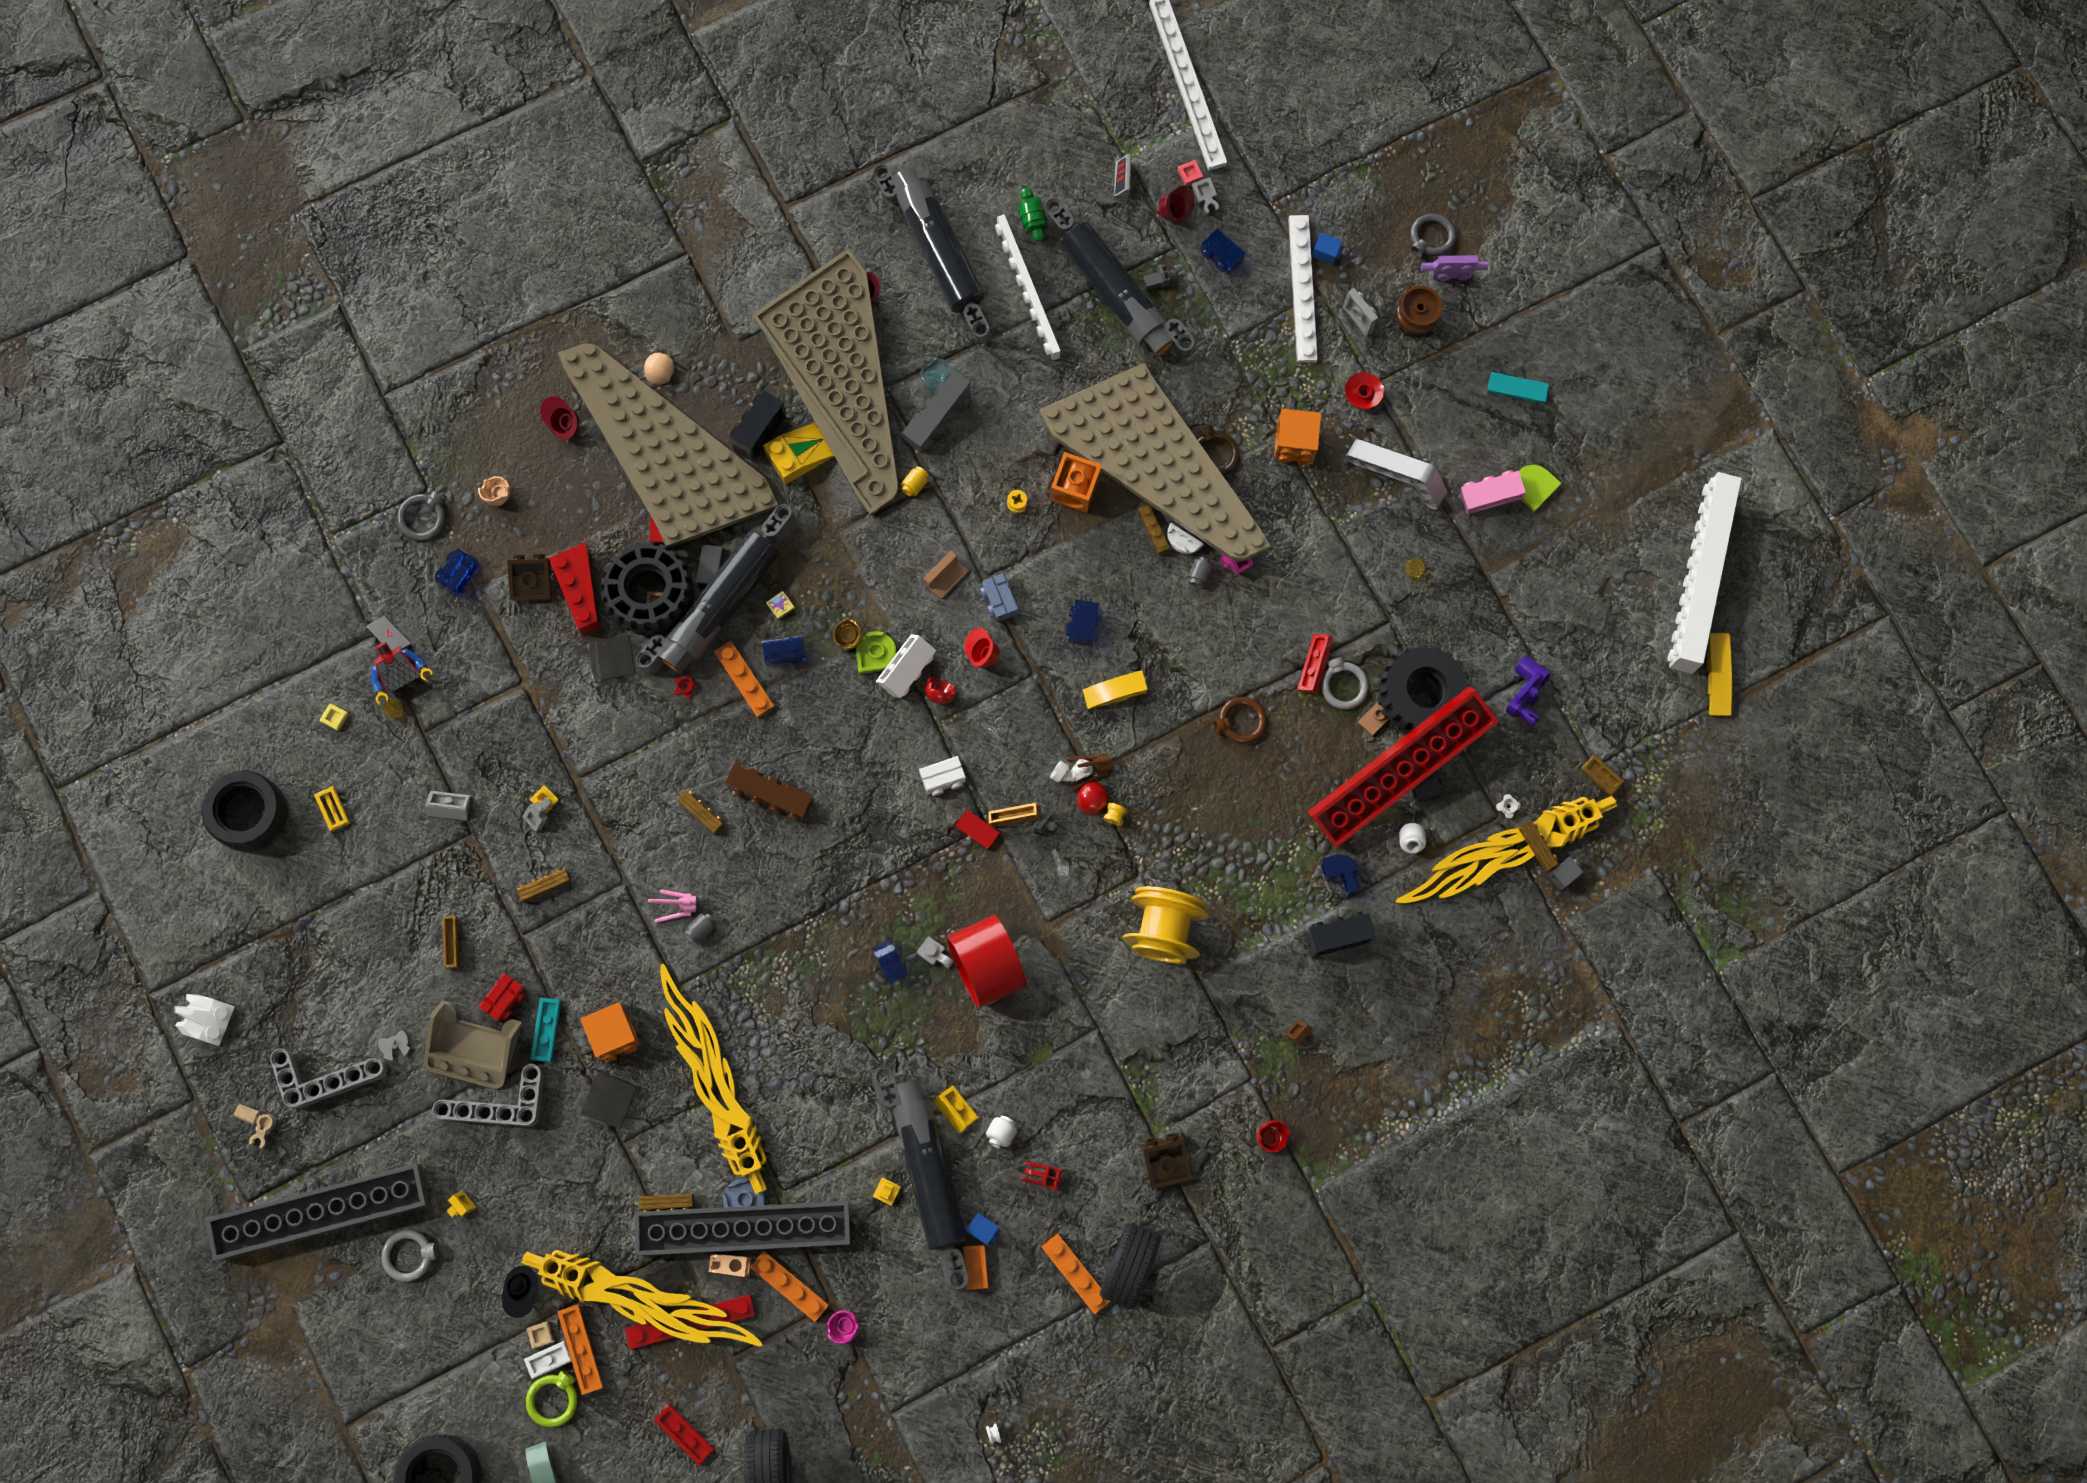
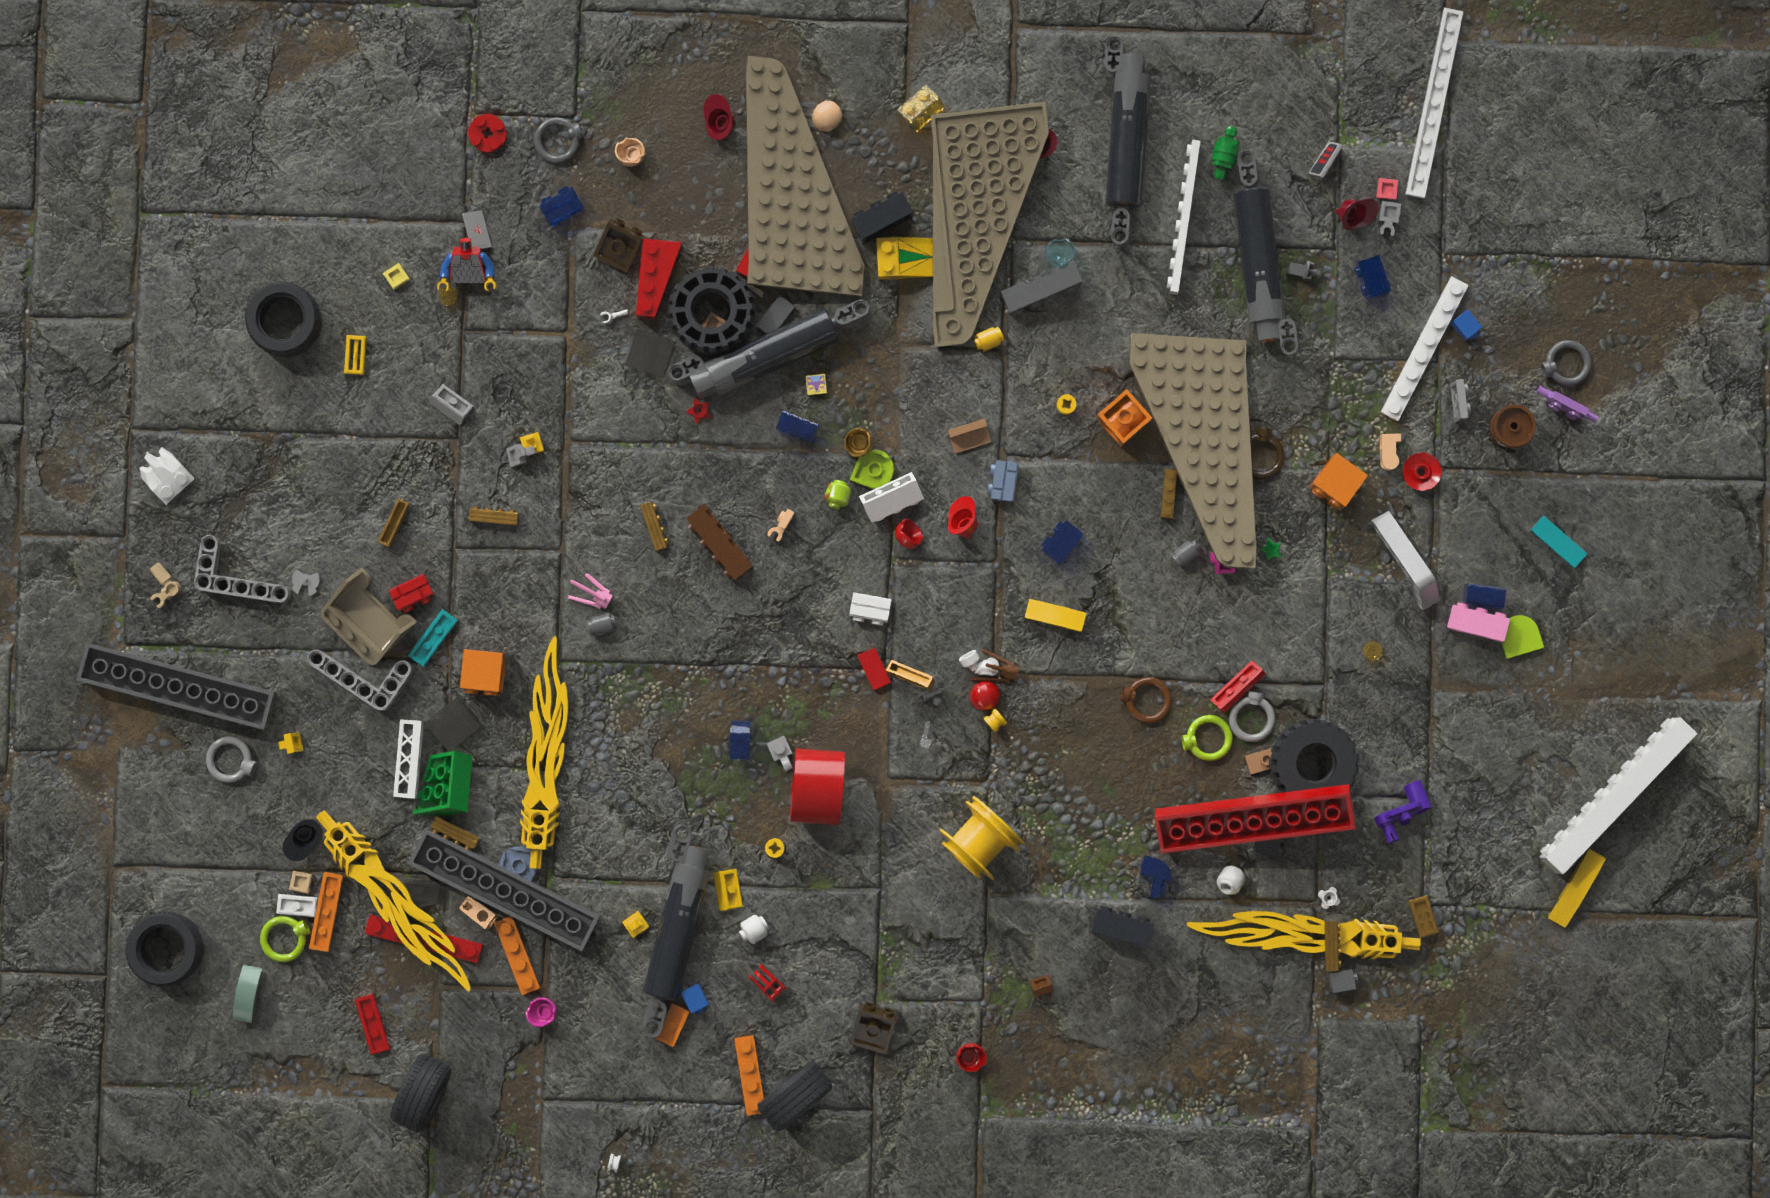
camera: 35 degrees right, 10 degrees up
(351, 533) = (482, 123): none -> red plate
(558, 644) = (613, 315): none -> white hand
(588, 1151) = (414, 761): none -> white fence
(632, 1161) = (445, 785): none -> green wedge
(739, 317) = (920, 107): none -> clear yellow bracket
(744, 679) = (751, 432): orange plate -> none
(818, 740) = (784, 520): none -> light nougat plate
(855, 690) = (837, 494): none -> lime head
(979, 1048) = (777, 848): none -> yellow wheel
(1182, 541) = (1186, 517): white plate -> none
(1273, 528) = (1271, 549): none -> green piece
(1302, 737) = (1189, 740): none -> lime piece
(1323, 388) = (1388, 456): none -> light nougat leg
(1483, 466) = (1484, 596): none -> clear blue brick

